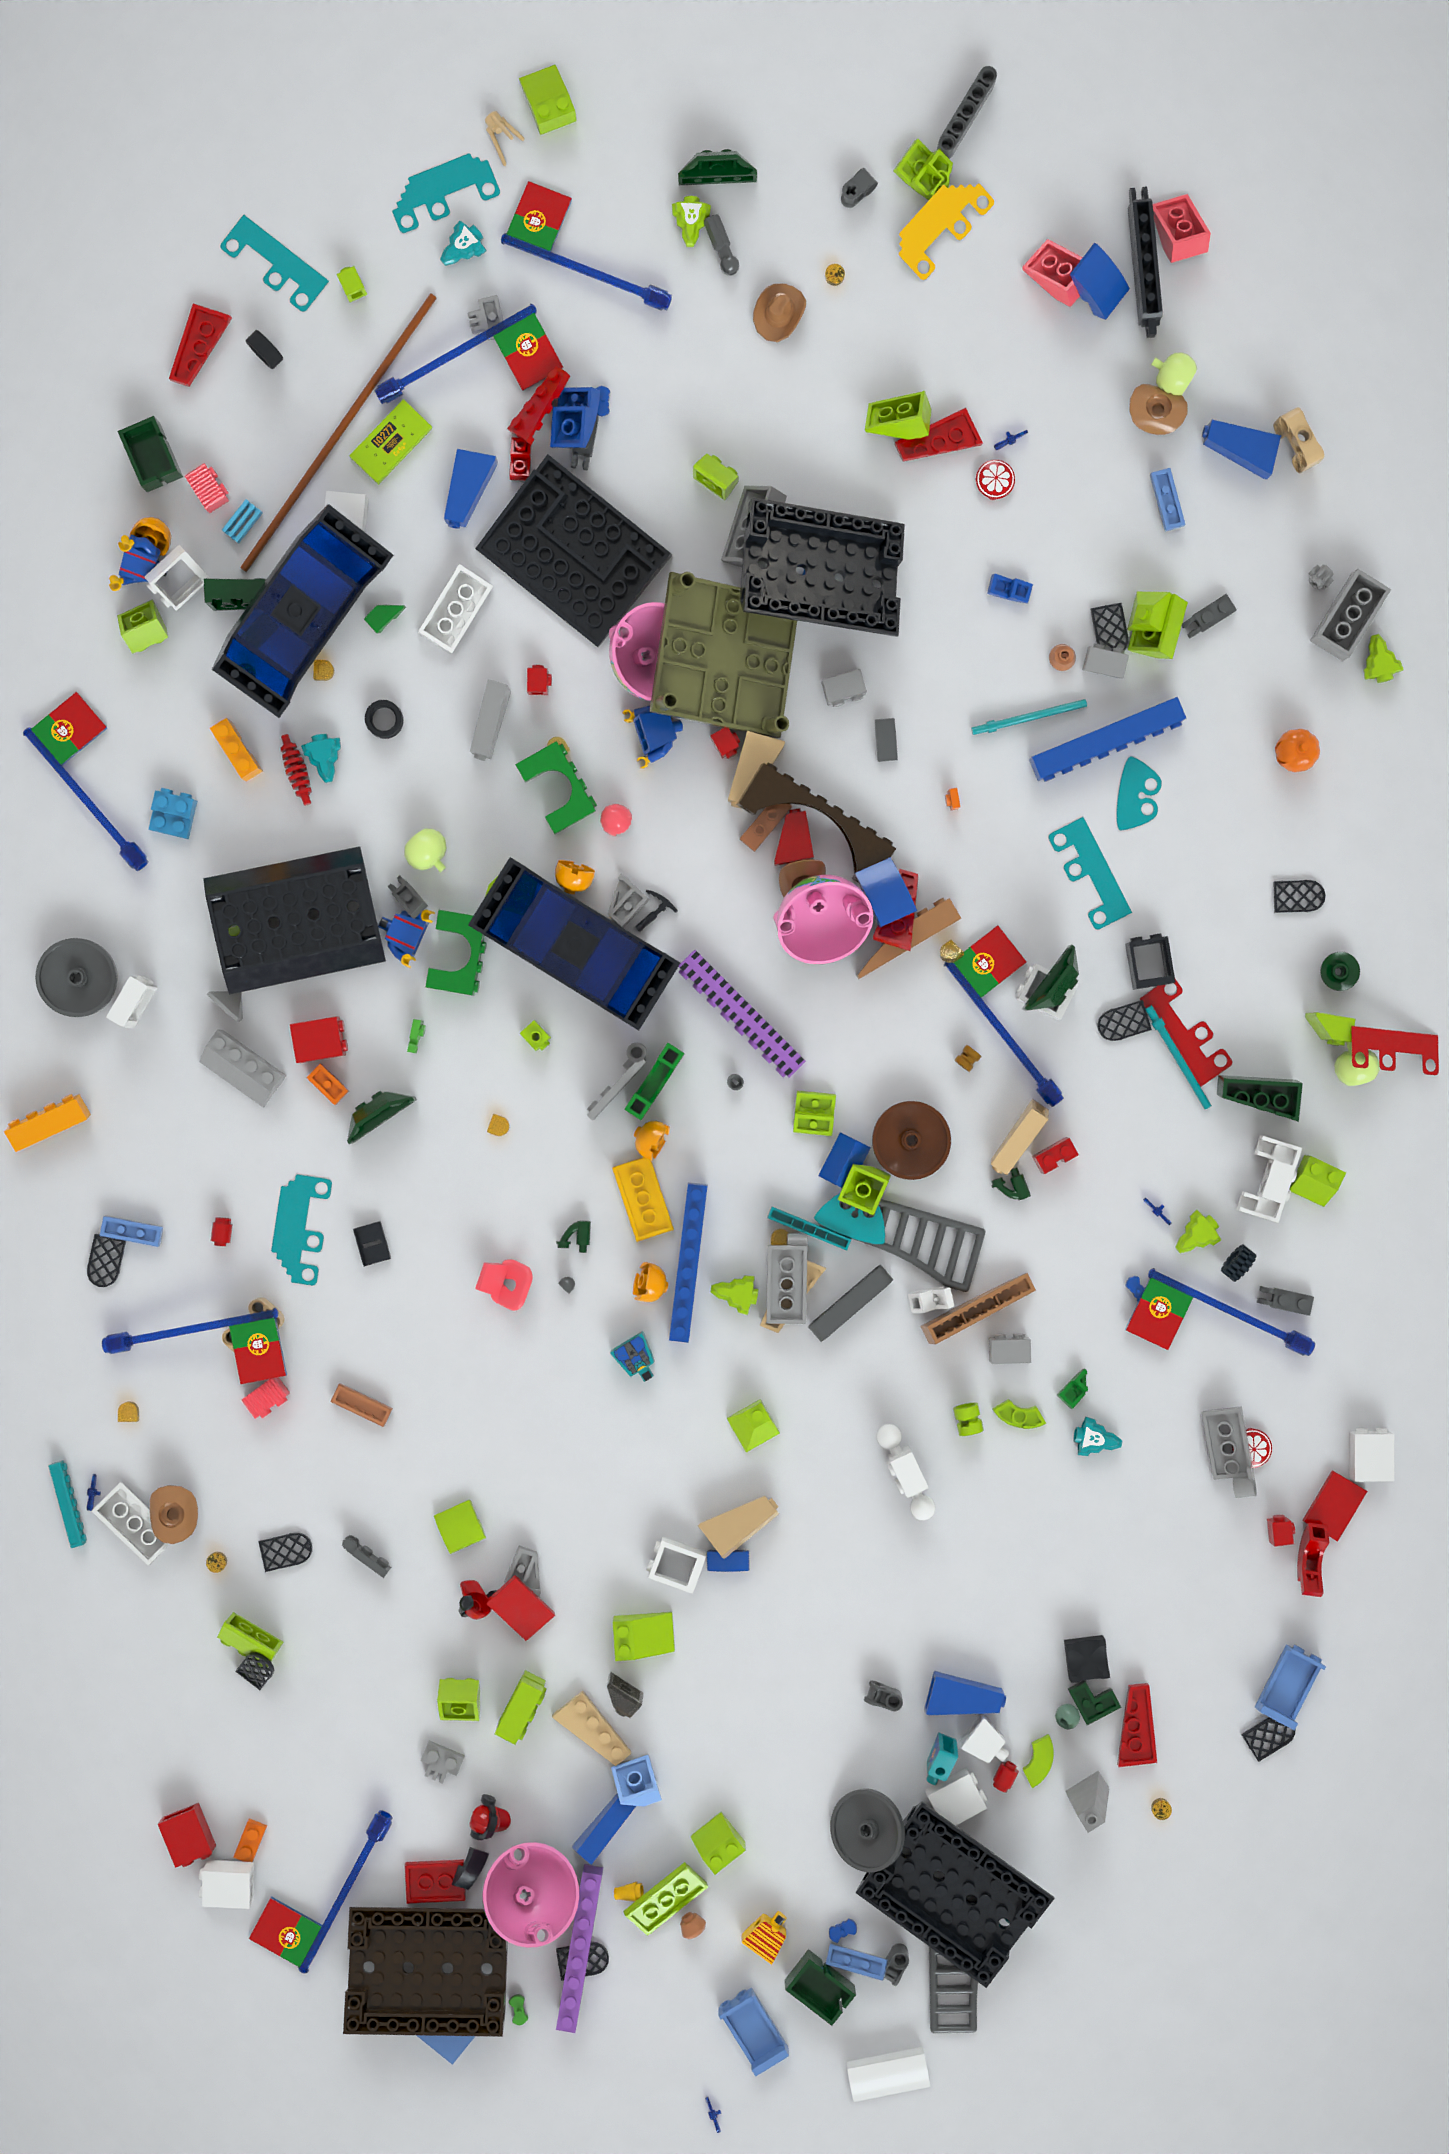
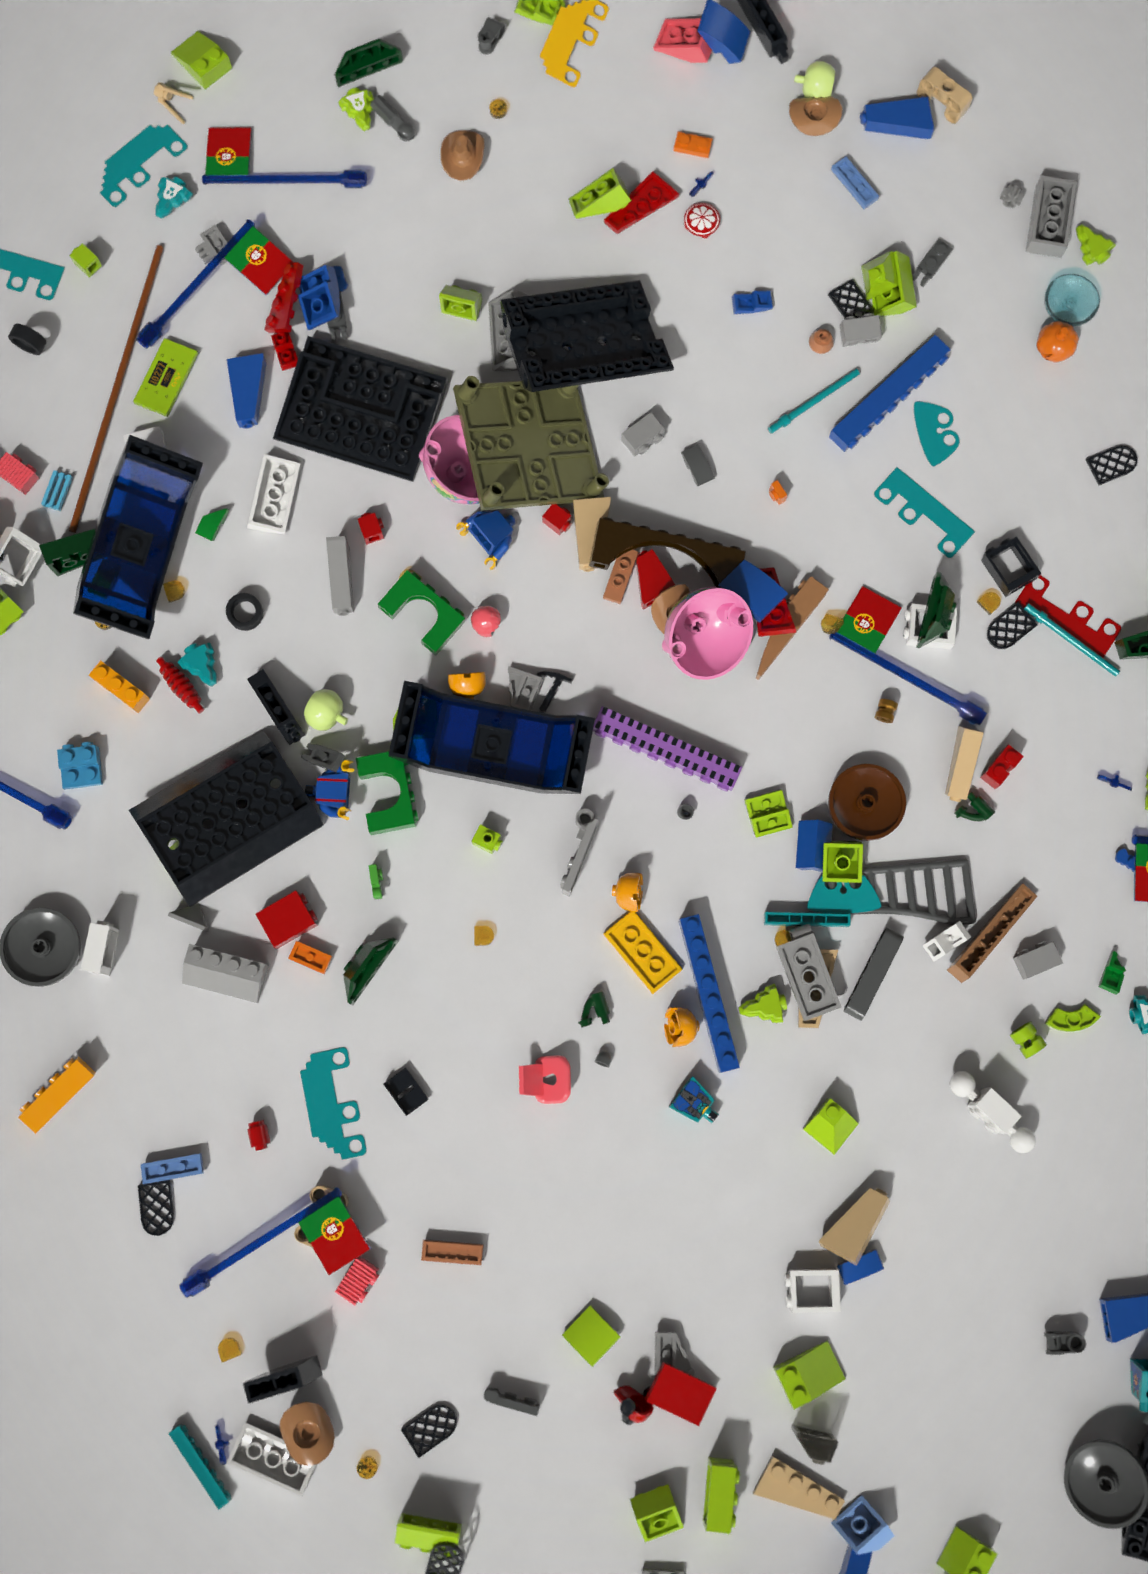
camera: 20 degrees left, 10 degrees down
(167, 1459) = (283, 1379): none -> black brick
(380, 828) = (276, 707): none -> black slope
(655, 1081) = (612, 835): green arch -> none
(1019, 392) = (692, 144): none -> orange plate
(1115, 989) = (989, 602): none -> clear yellow tile
(1343, 711) = (1077, 293): none -> clear light blue dish

